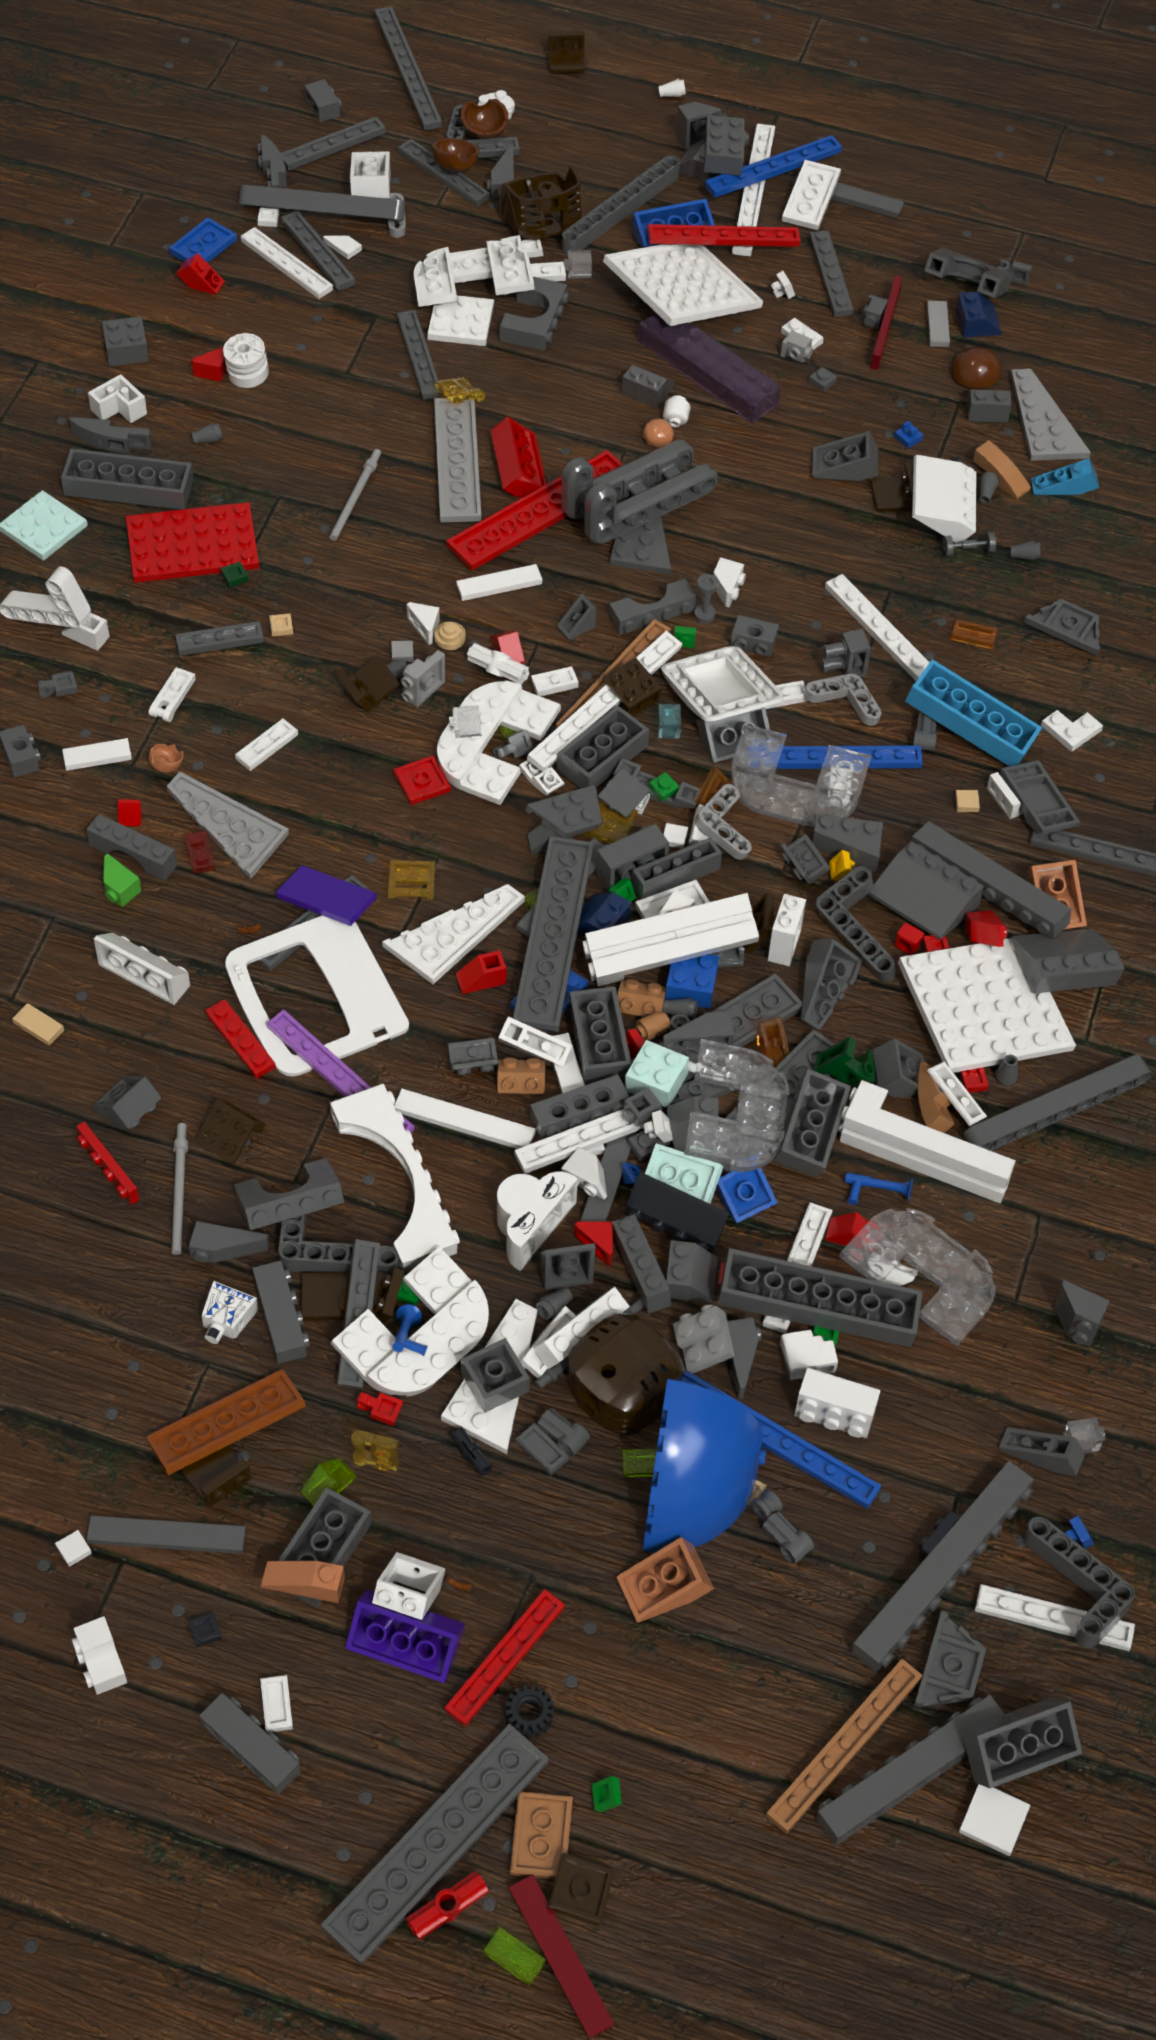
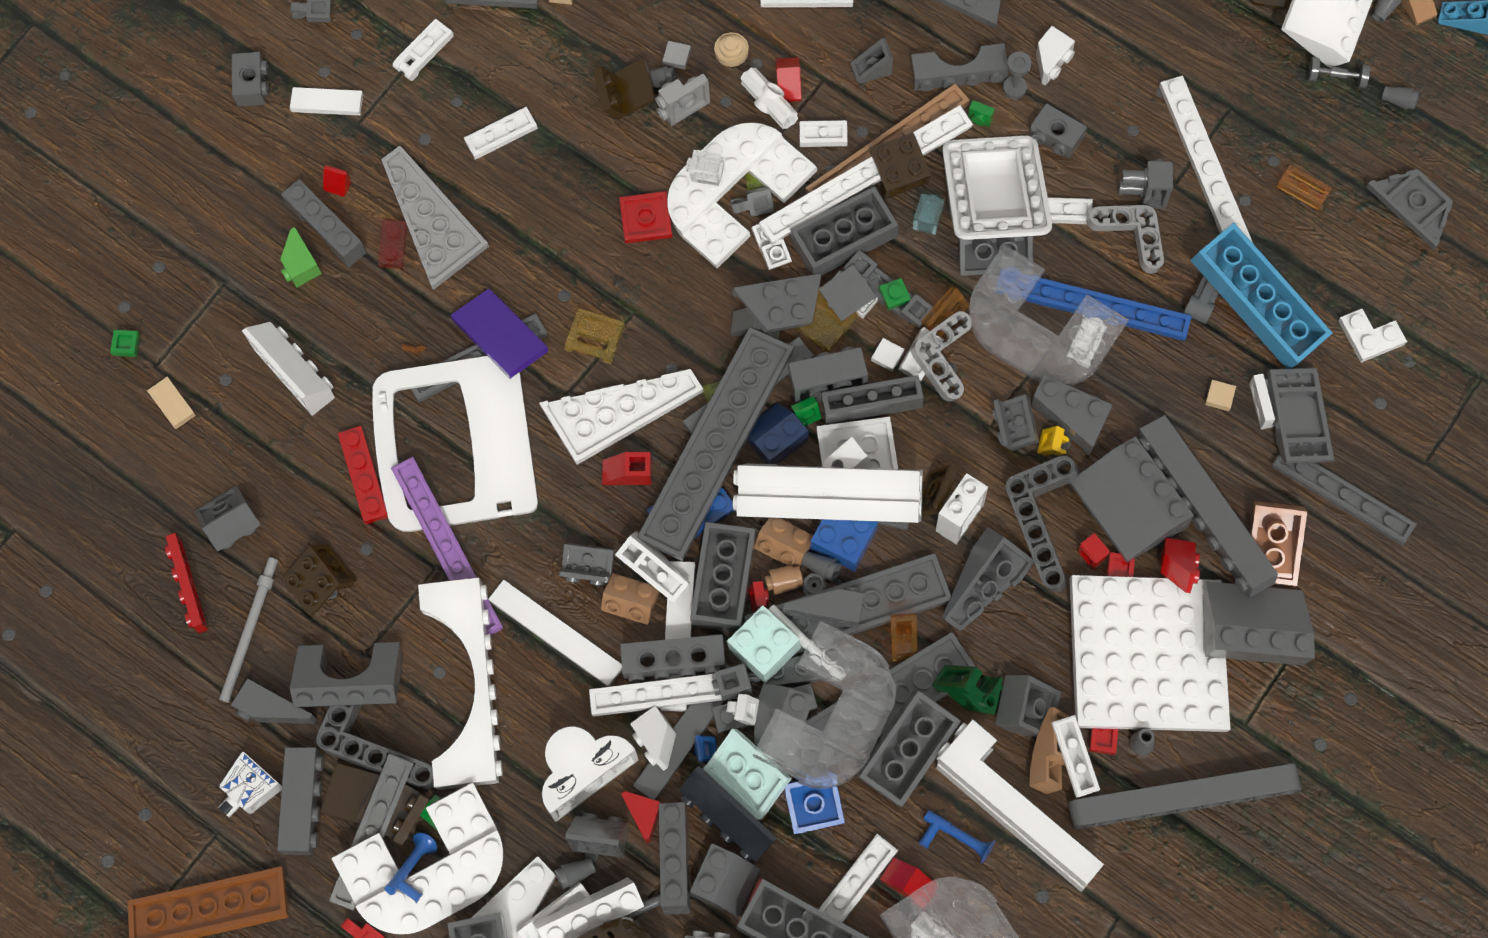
camera: 25 degrees right, 15 degrees up
(165, 758) = (390, 125): nougat hair -> none
(424, 619) = (712, 24): white slope -> none

